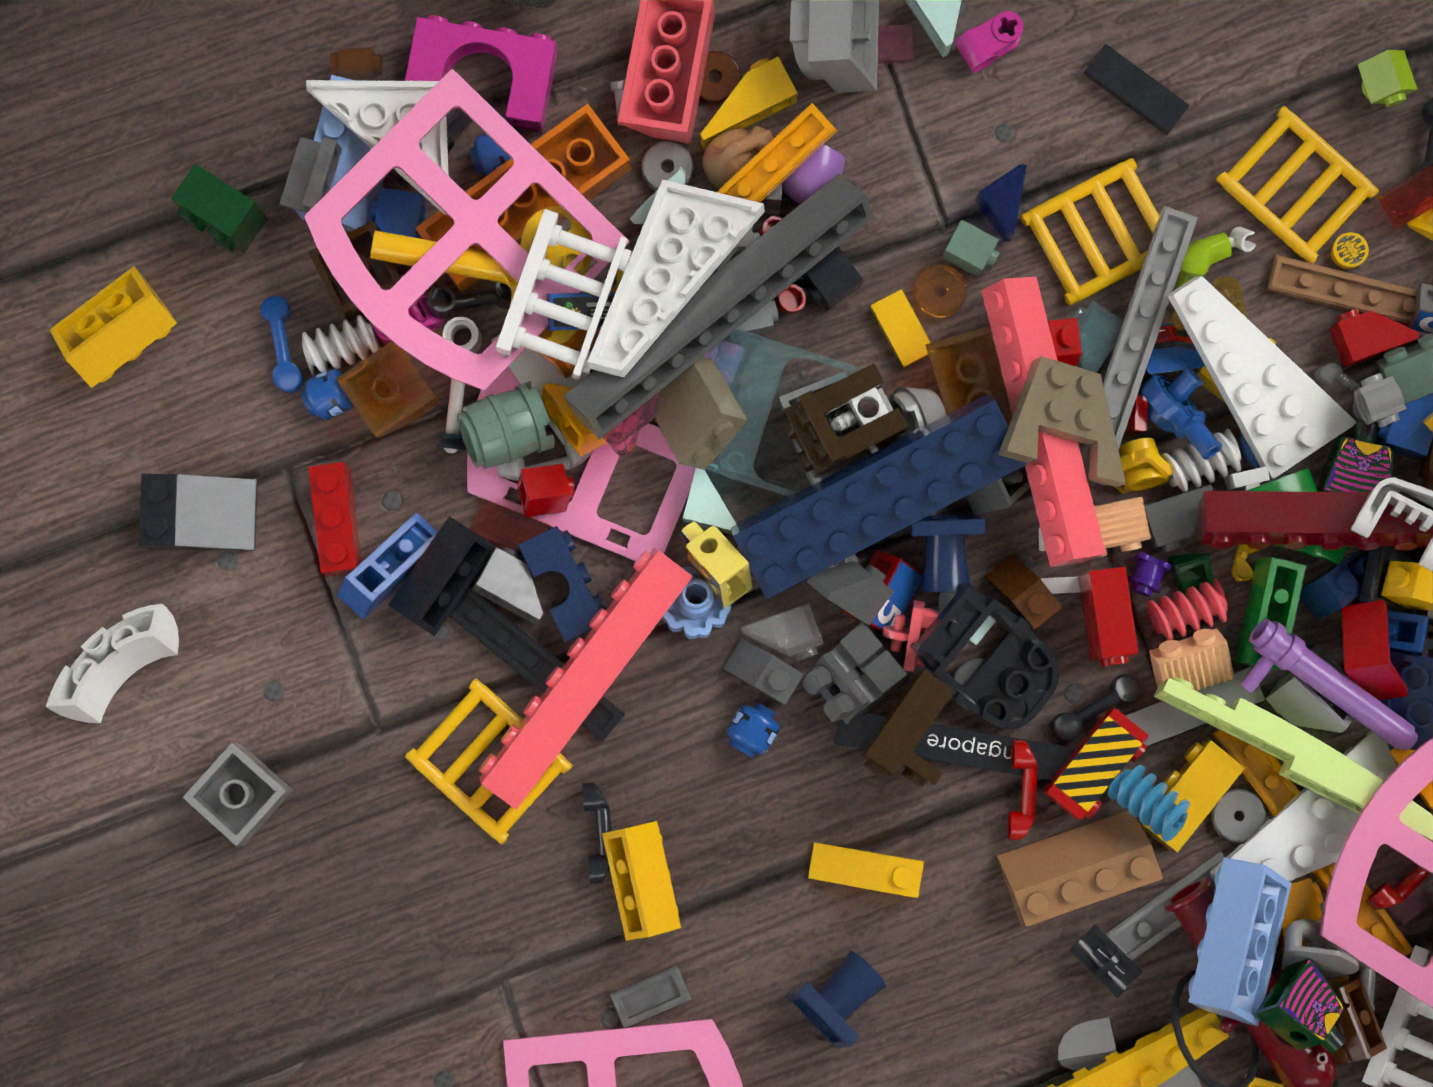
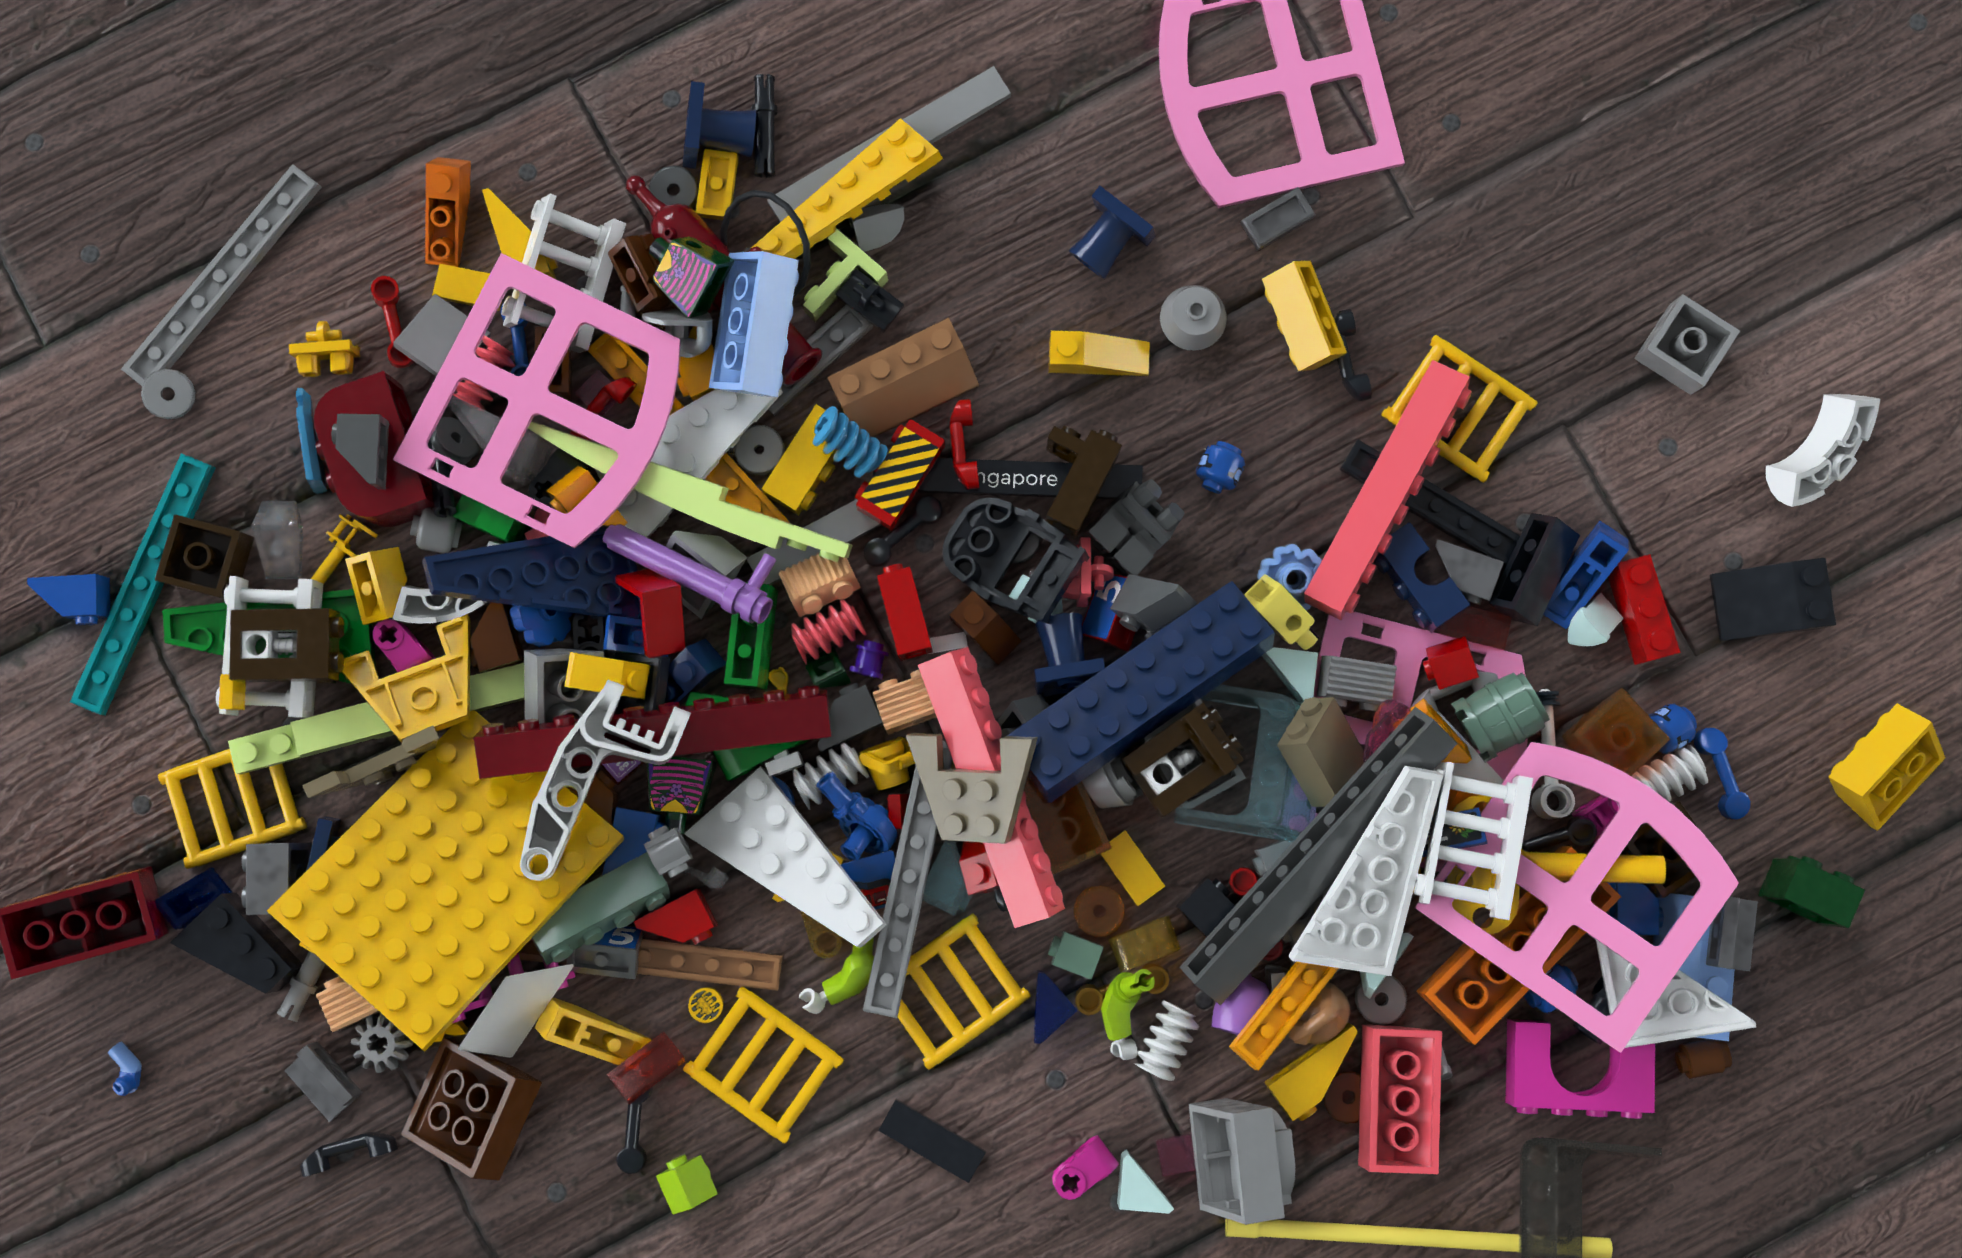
camera: 175 degrees right, 0 degrees up
(387, 514) = (1593, 622): none -> light aqua tile
(646, 484) = (1356, 681): none -> light grey brick
(758, 897) = (1193, 317): none -> light grey cone
(763, 671) = (1218, 521): dark grey slope -> none
(787, 633) = (1201, 560): clear slope -> none
(889, 149) = (1167, 1041): none -> white piece
(899, 251) = (1144, 943): none -> clear yellow beam
(939, 186) = (1116, 1008): none -> lime arm
(962, 206) = (1090, 998): none -> pearl gold bar
(1157, 971) = (821, 297): none -> yellowish green bracket

